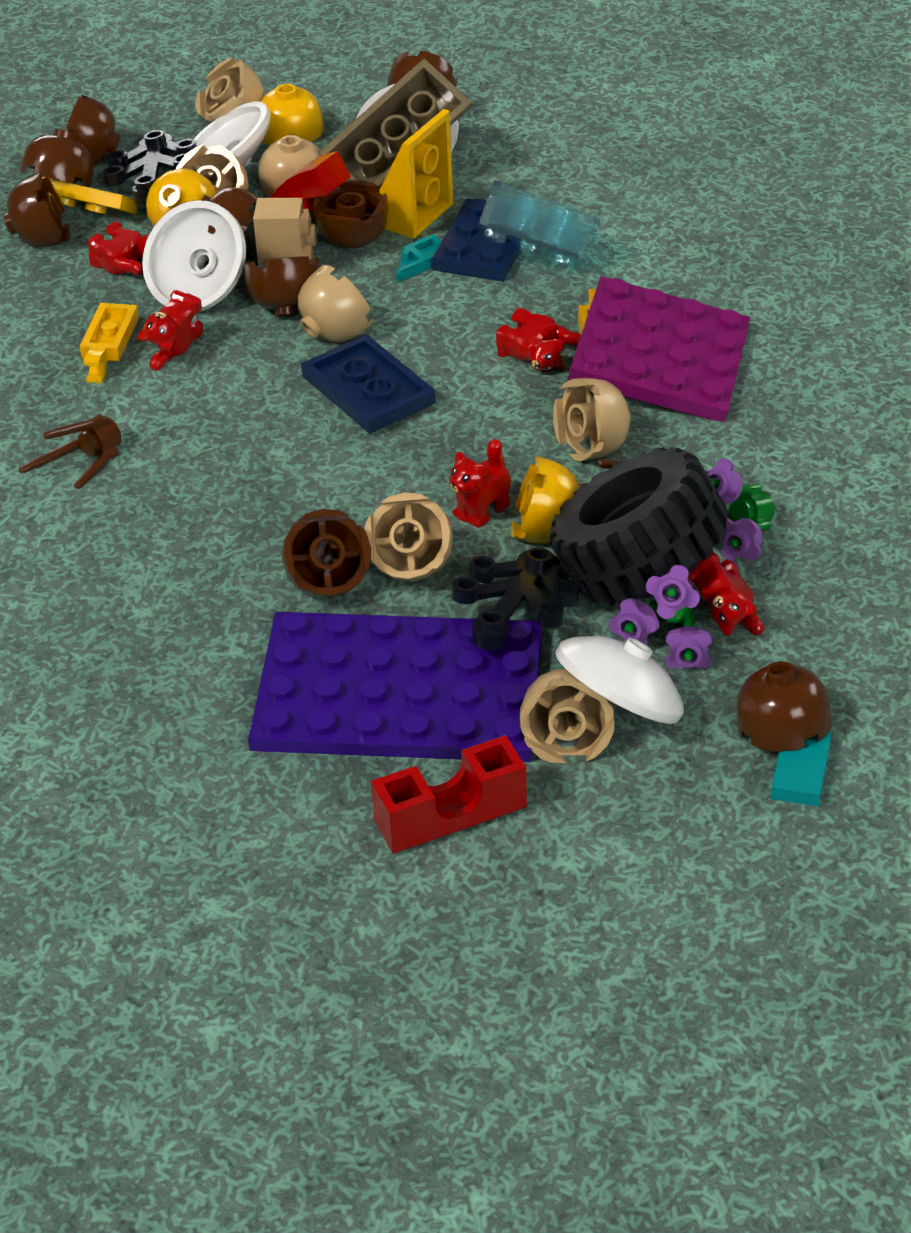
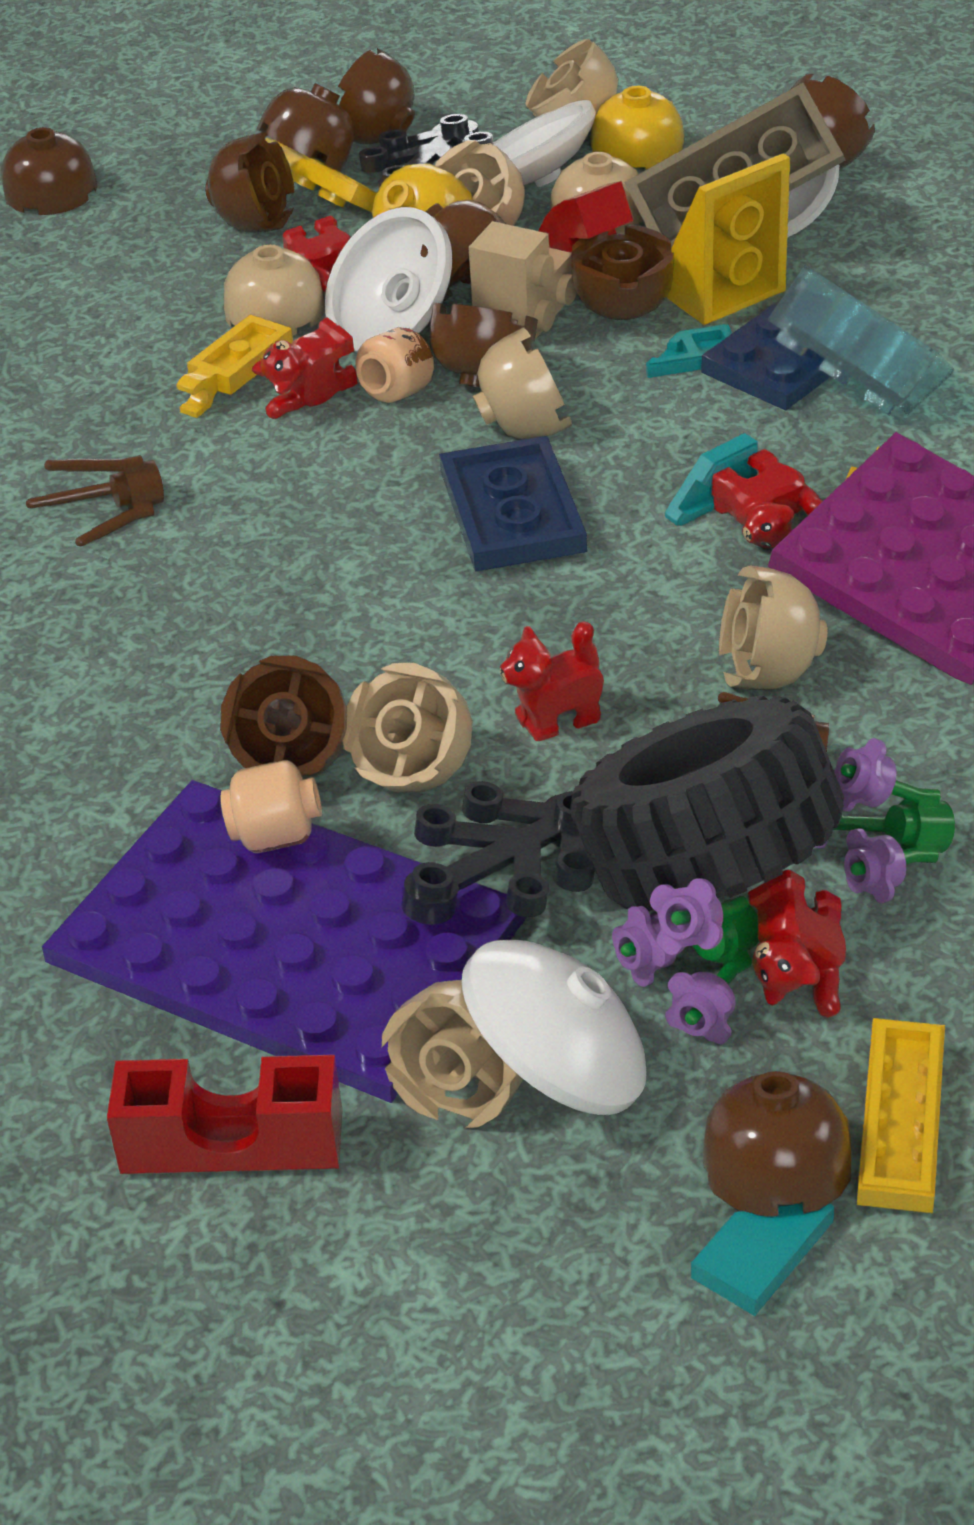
camera: 25 degrees right, 0 degrees up
(103, 278) = (274, 287): none -> tan cylinder
(227, 312) = (394, 364): none -> light nougat head
(355, 608) = (270, 806): none -> light nougat head
(485, 347) = (695, 494): none -> teal tile
(540, 499) = (639, 707): yellow cylinder -> none
(836, 664) = (901, 1116): none -> yellow plate

